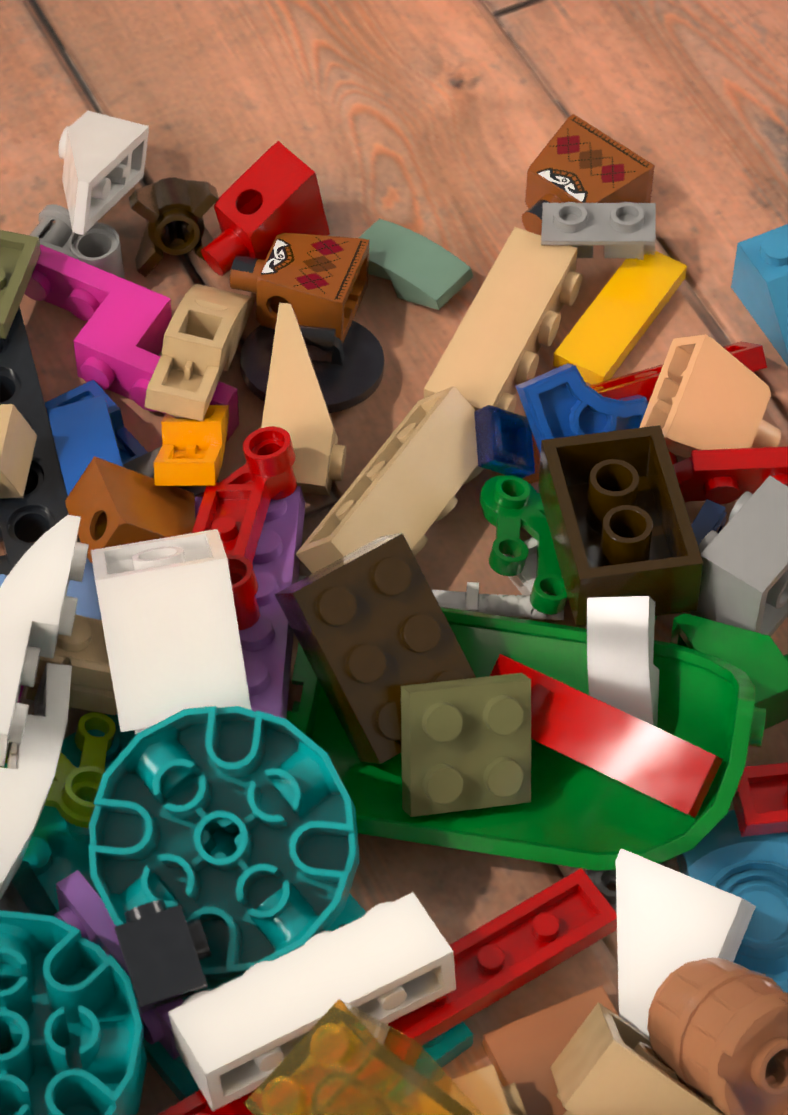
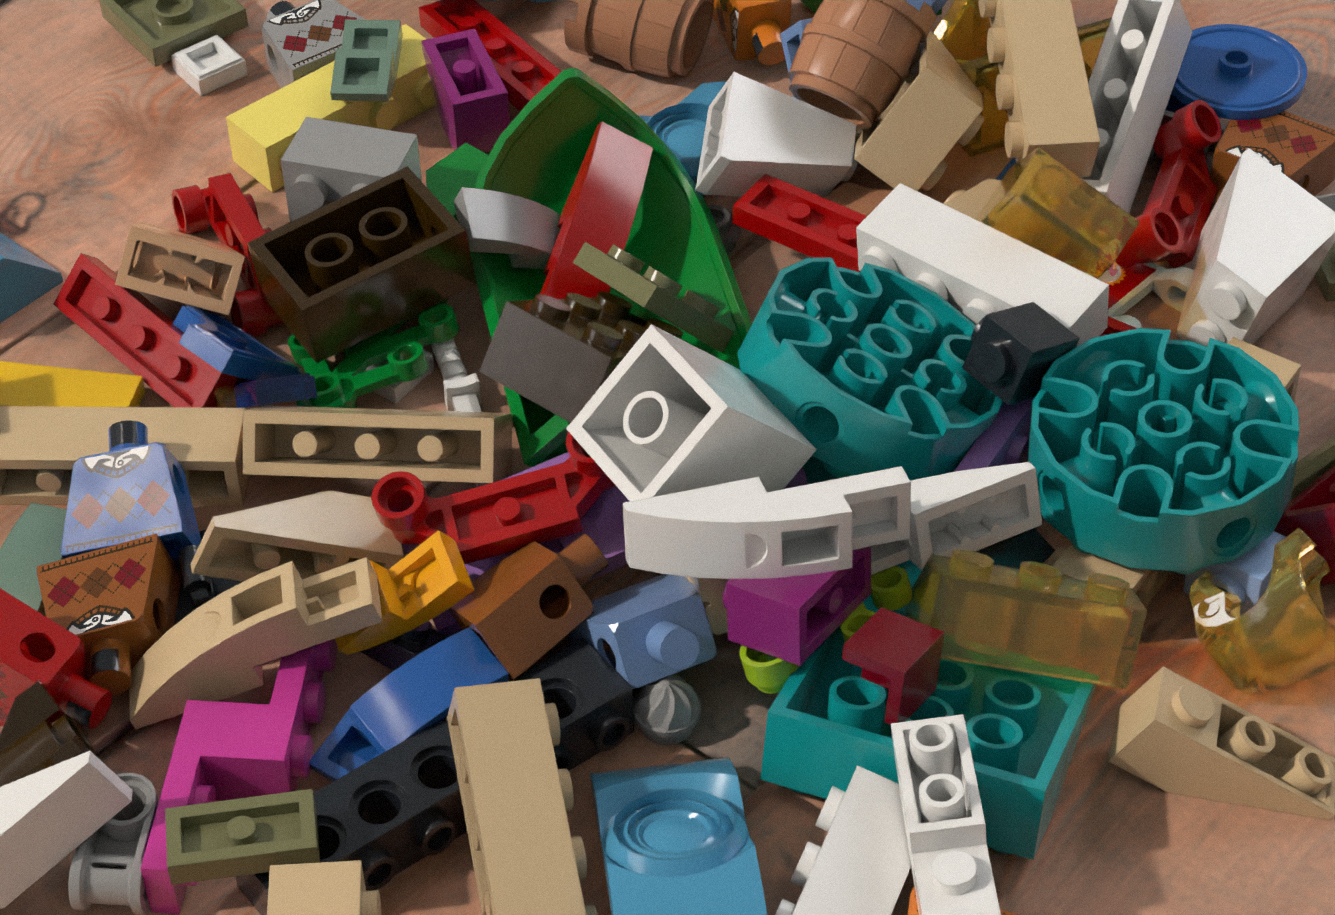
camera: 110 degrees left, 10 degrees down
(404, 311) = (128, 496): none -> torso

